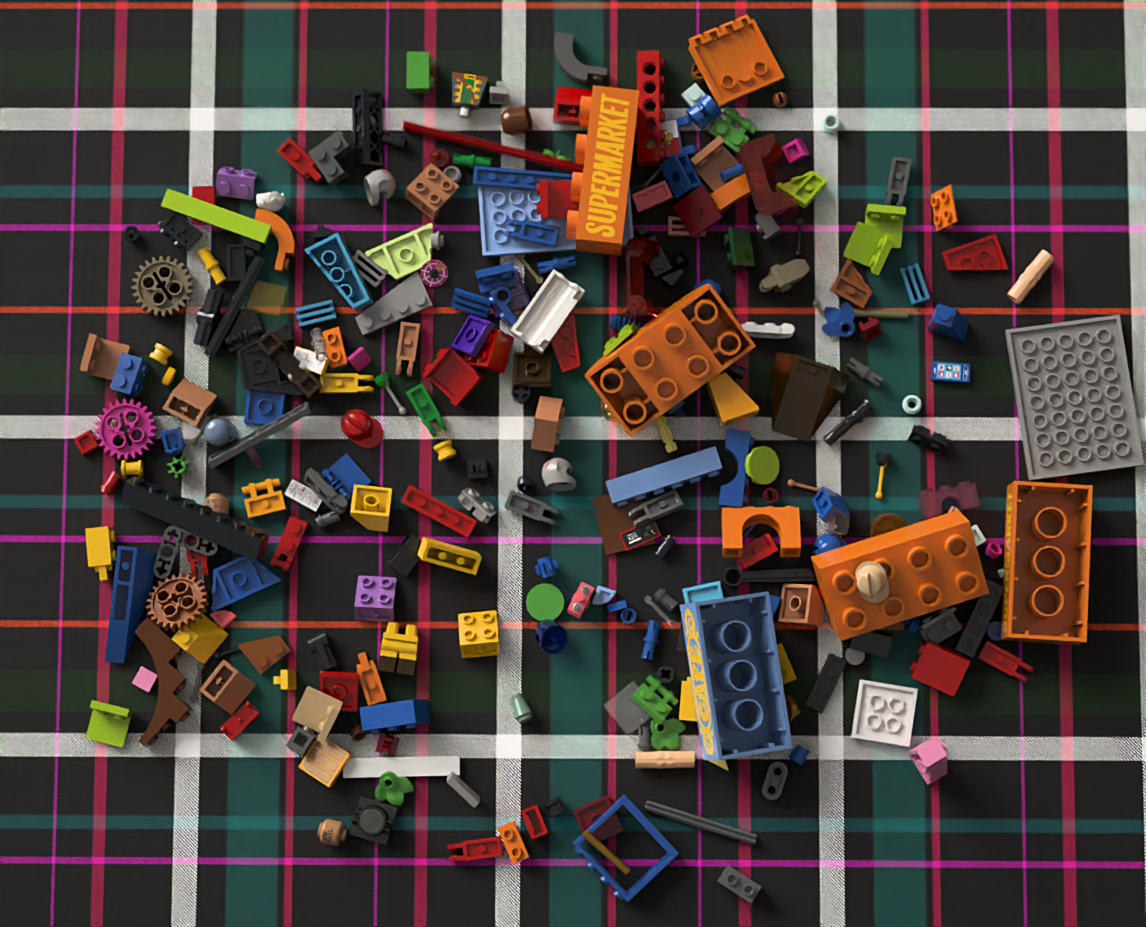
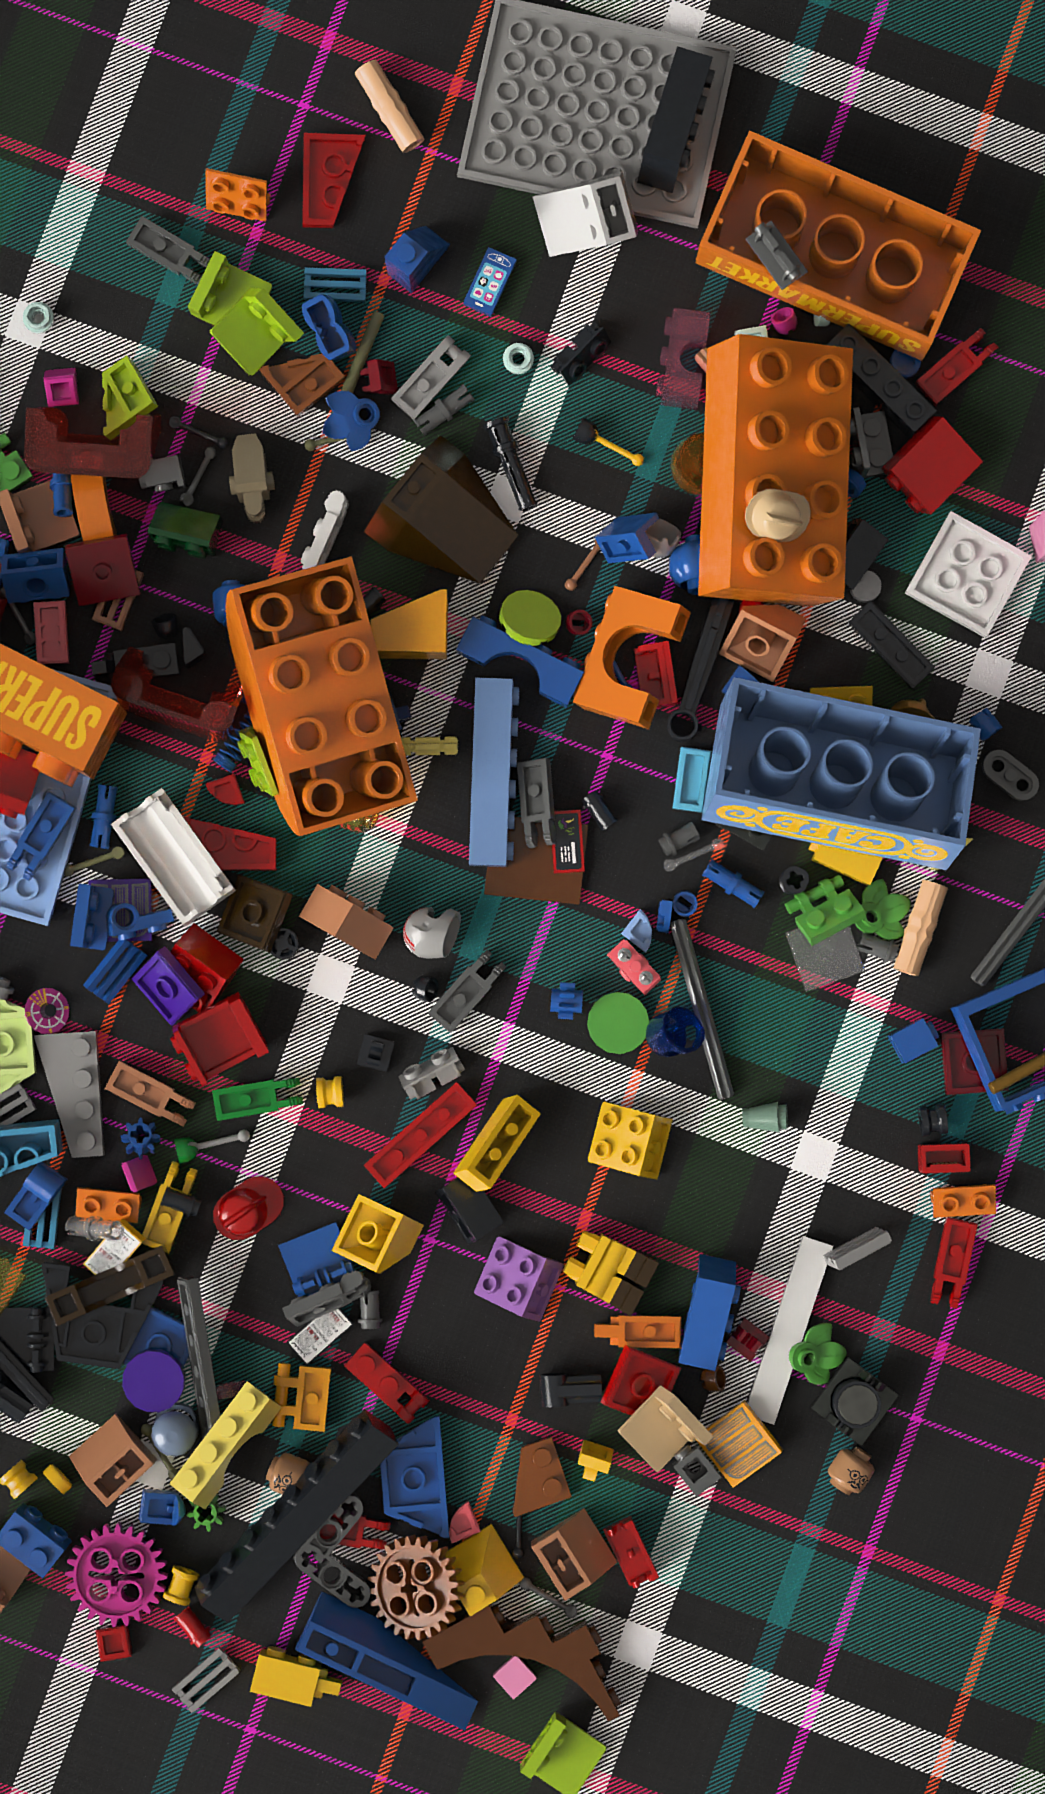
camera: 75 degrees left, 5 degrees up
(69, 495) = (186, 1697): none -> light grey tile
(240, 468) = (205, 1469): none -> light yellow arch
(243, 410) = (153, 1380): none -> dark purple tile
(326, 304) = (35, 1195): none -> blue plate
(351, 388) = (181, 1202): none -> black pin
(378, 356) = (133, 1134): none -> blue gear
(571, 648) = (701, 1008): none -> dark grey axle
(597, 779) = (914, 1040): none -> blue brick
(598, 328) = (226, 790): none -> red tile
(758, 245) = (187, 498): none -> dark grey hinge
(880, 357) = (430, 378): none -> light grey plate
(883, 292) = (325, 319): none -> blue brick
(1010, 413) = (586, 215): none -> slope
(1025, 526) = (776, 254): none -> dark grey hinge
(1086, 443) = (675, 119): none -> black wedge

